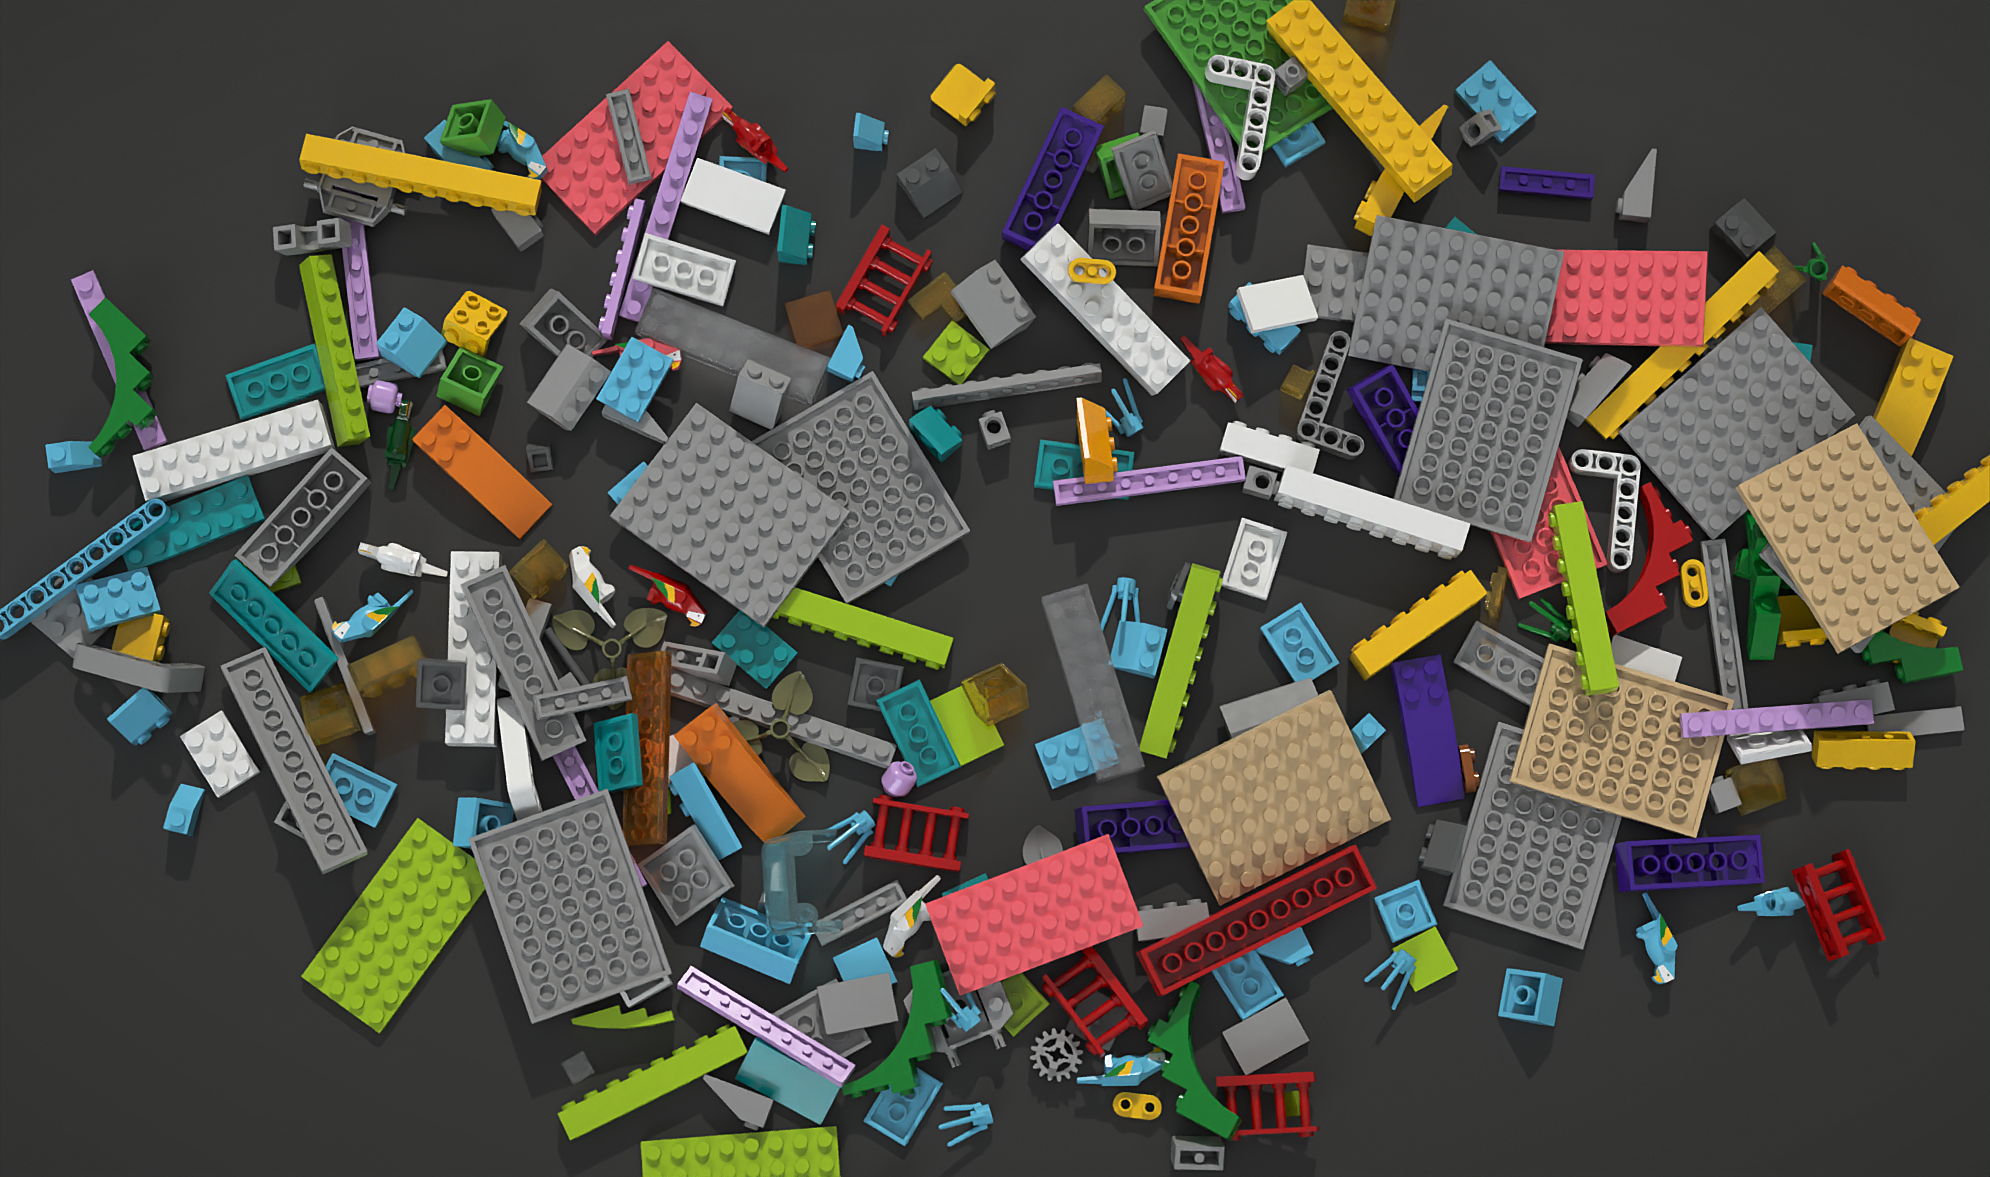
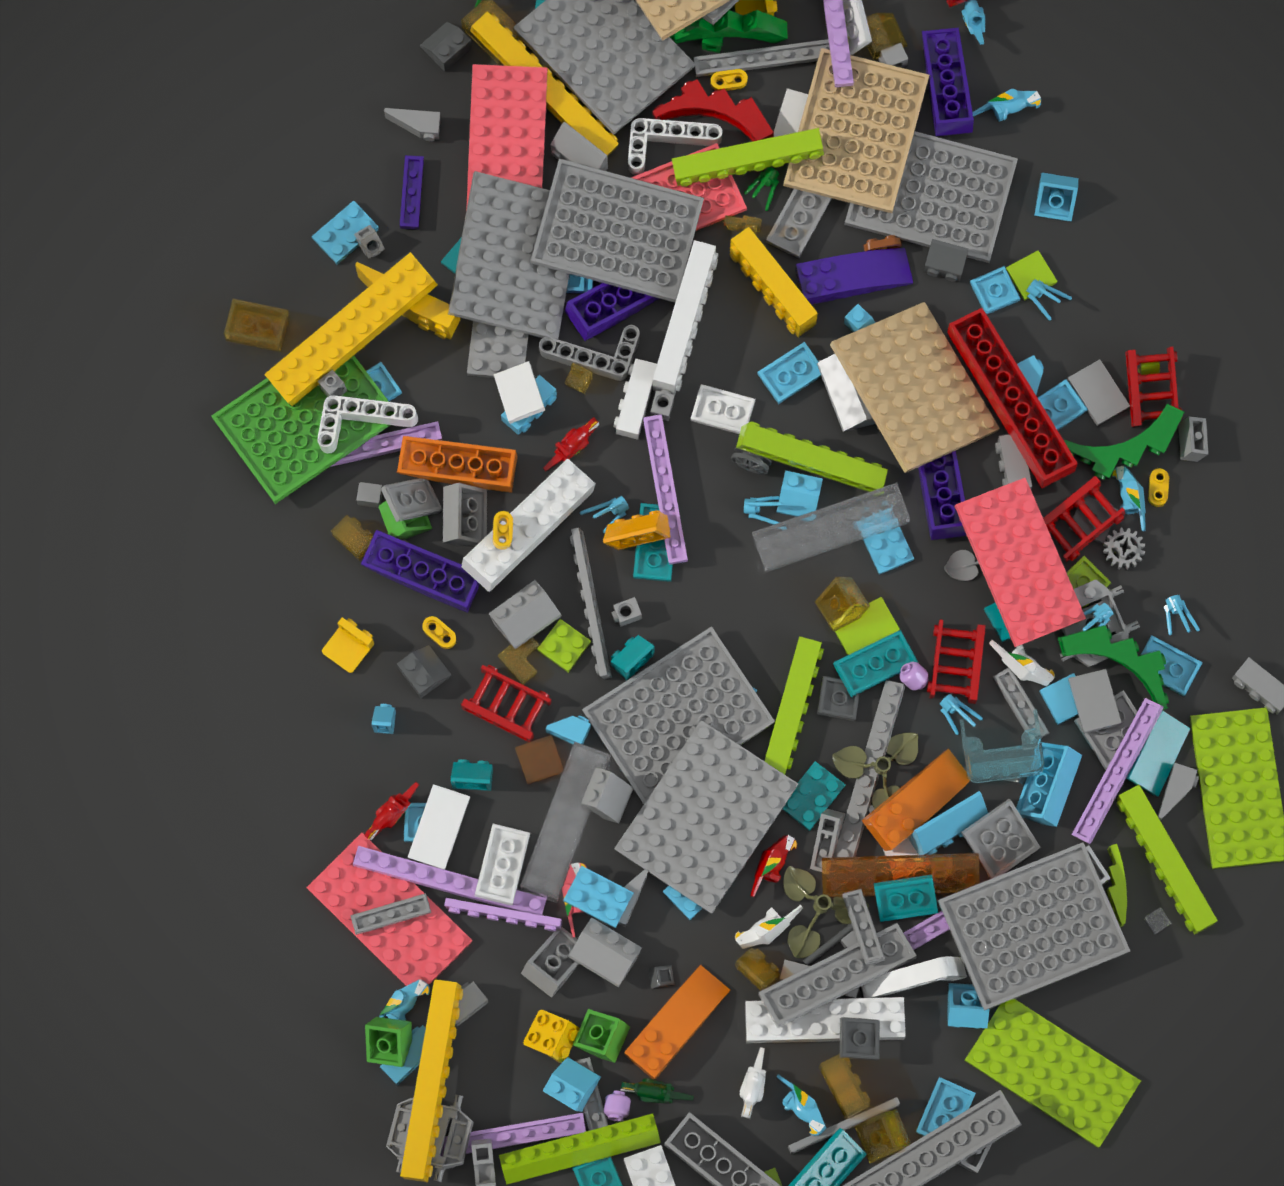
camera: 85 degrees left, 5 degrees down
(976, 204) = (439, 633): none -> yellow plate

